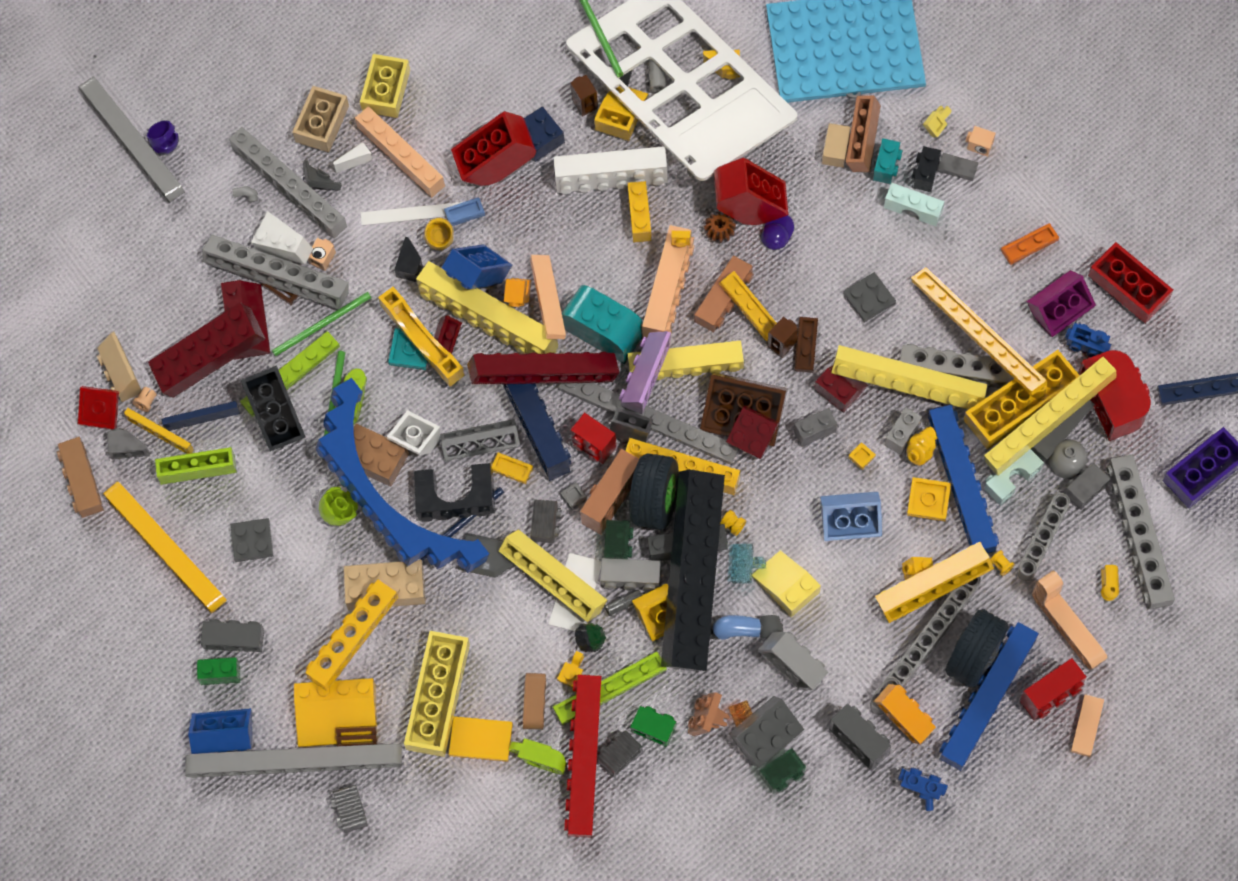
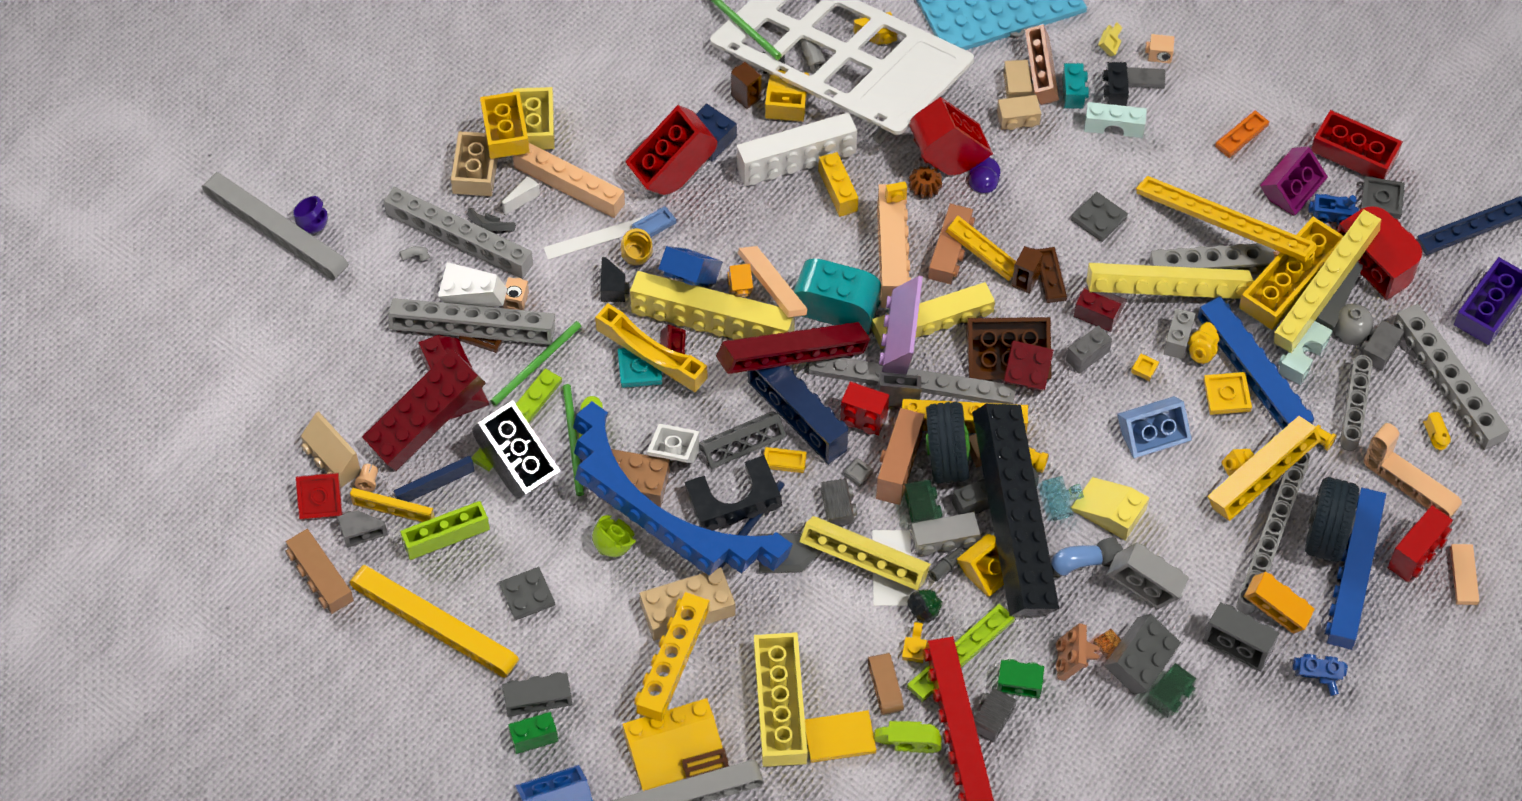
camera: 20 degrees left, 10 degrees down
(351, 91) = (504, 125): none -> yellow brick
(827, 176) = (1018, 112): none -> tan brick
(1139, 338) = (1383, 194): none -> dark grey plate

